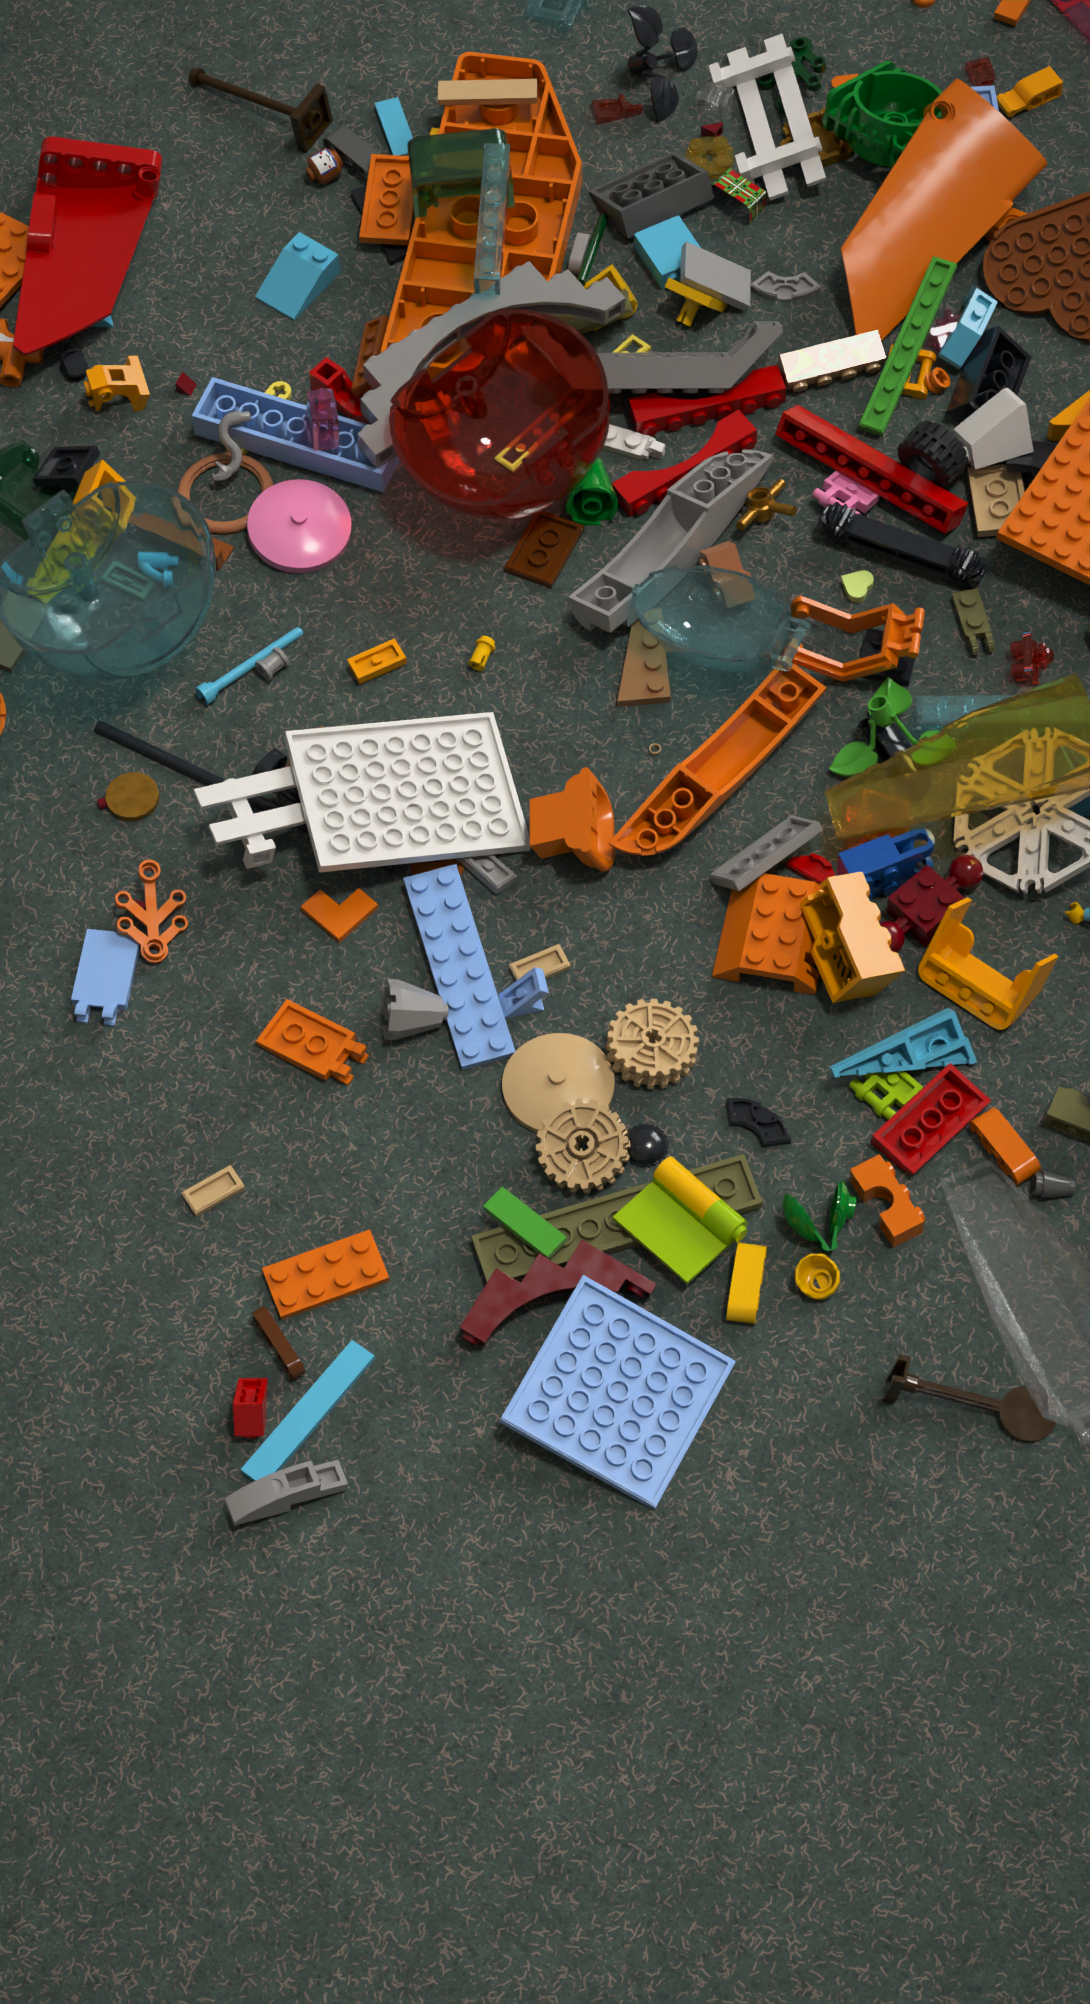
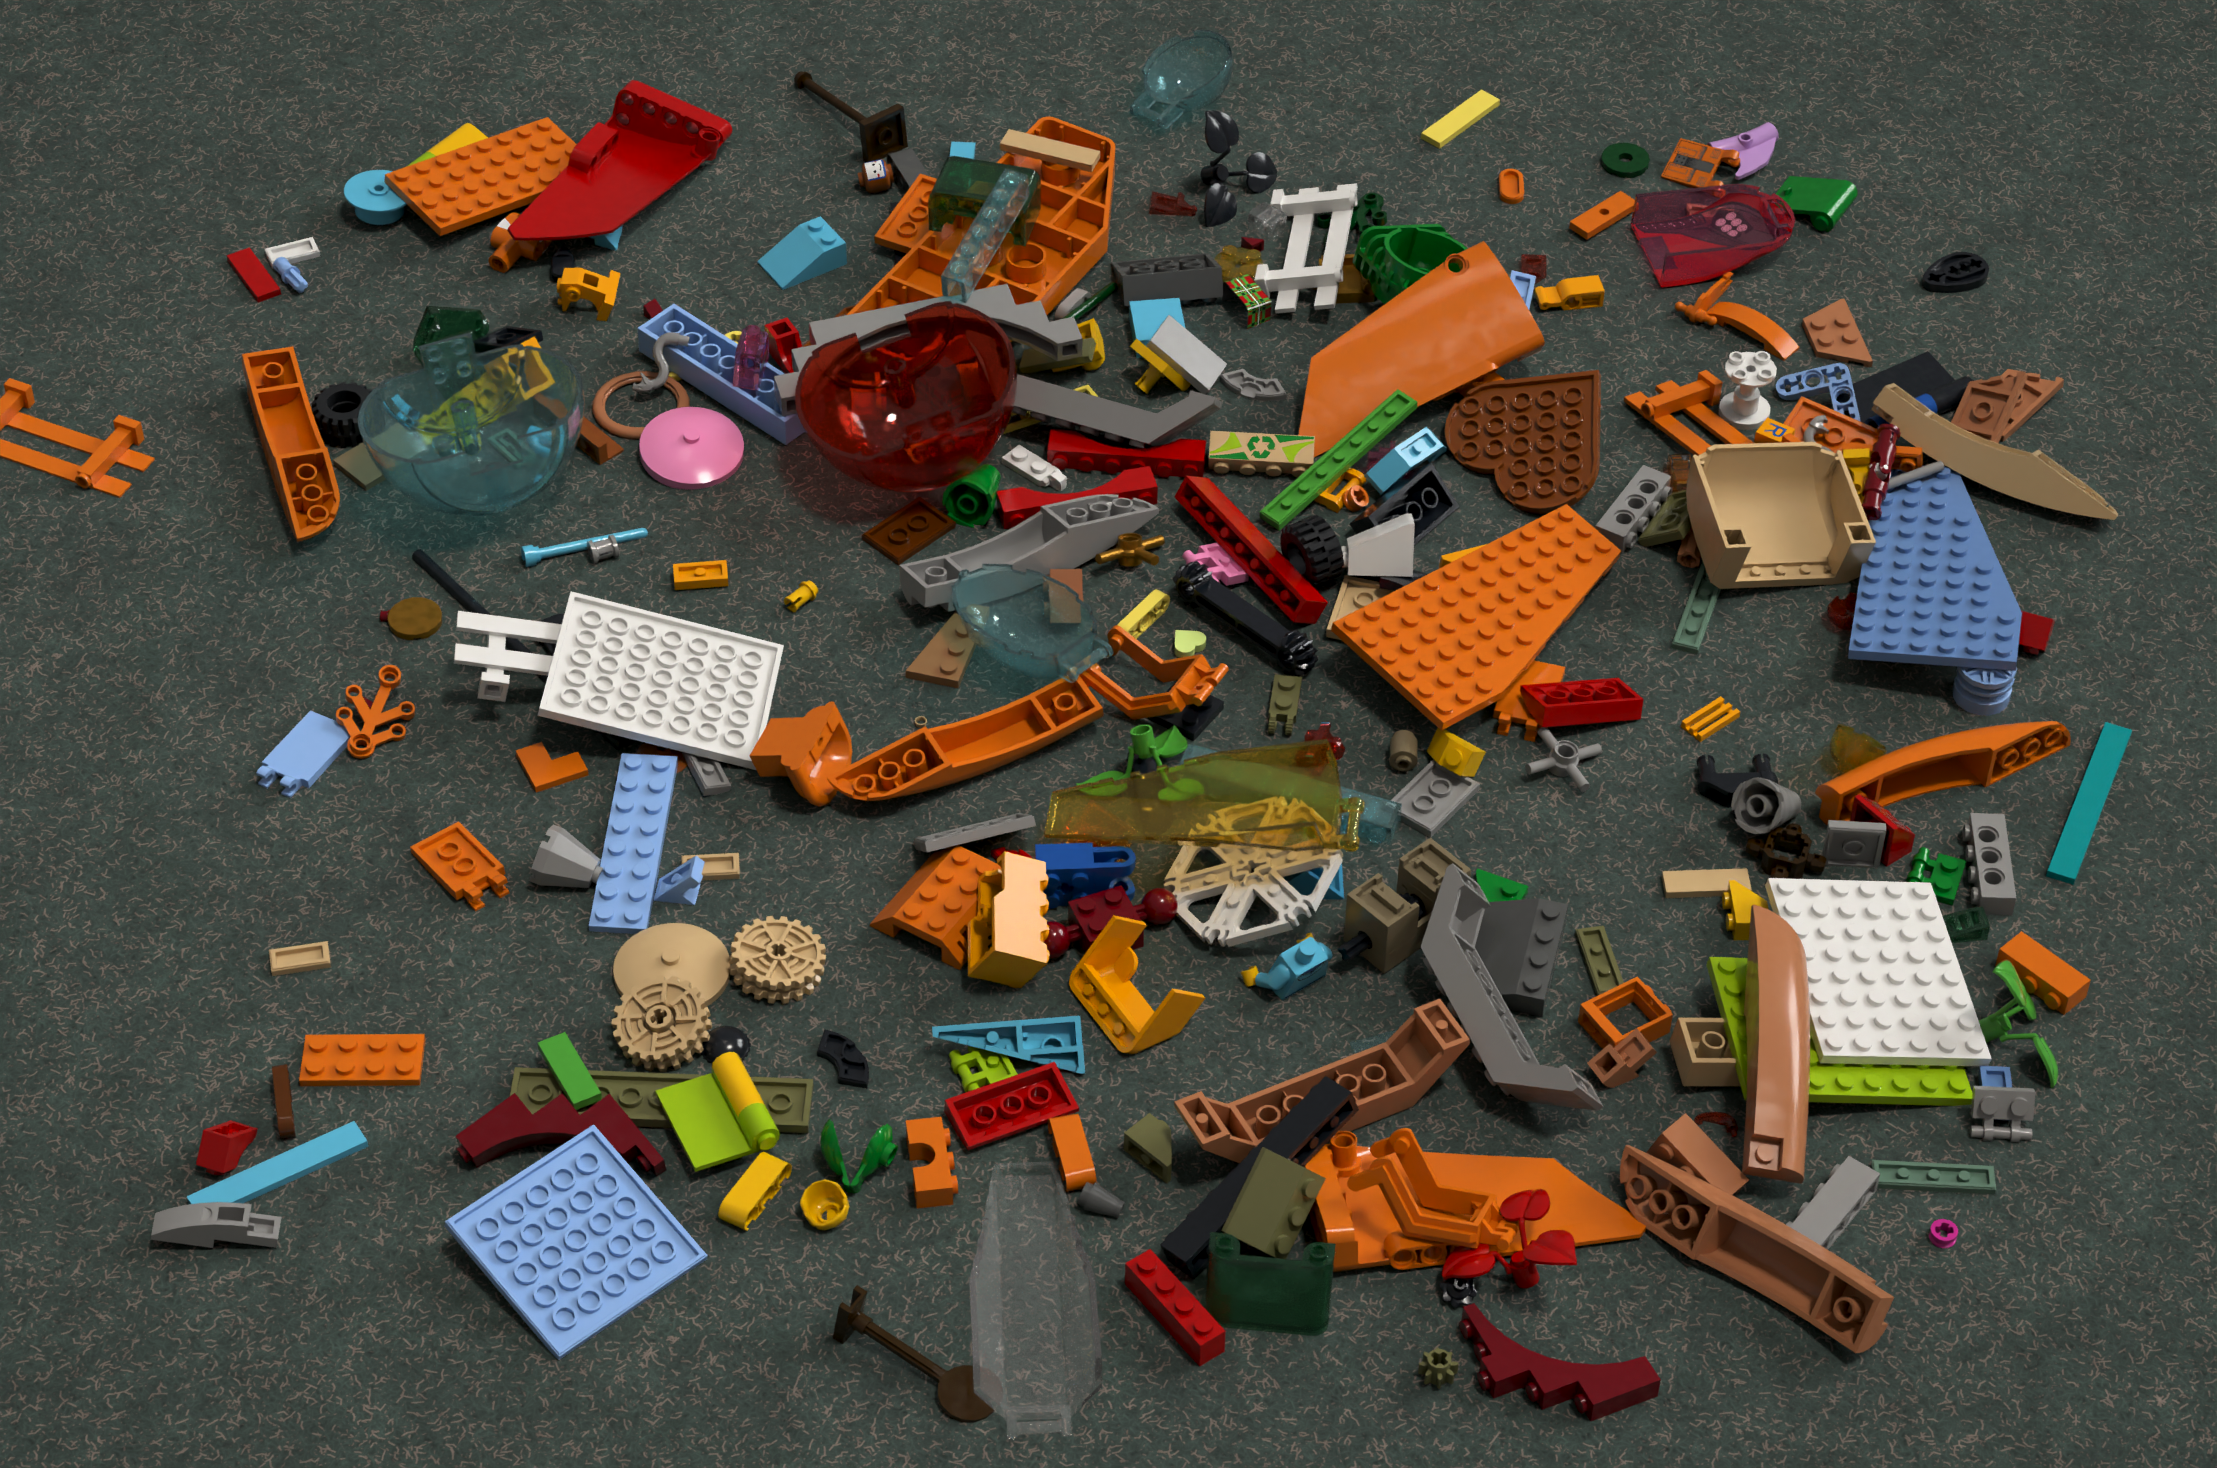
camera: 15 degrees right, 15 degrees down
(805, 570) = (1145, 613): none -> light yellow beam

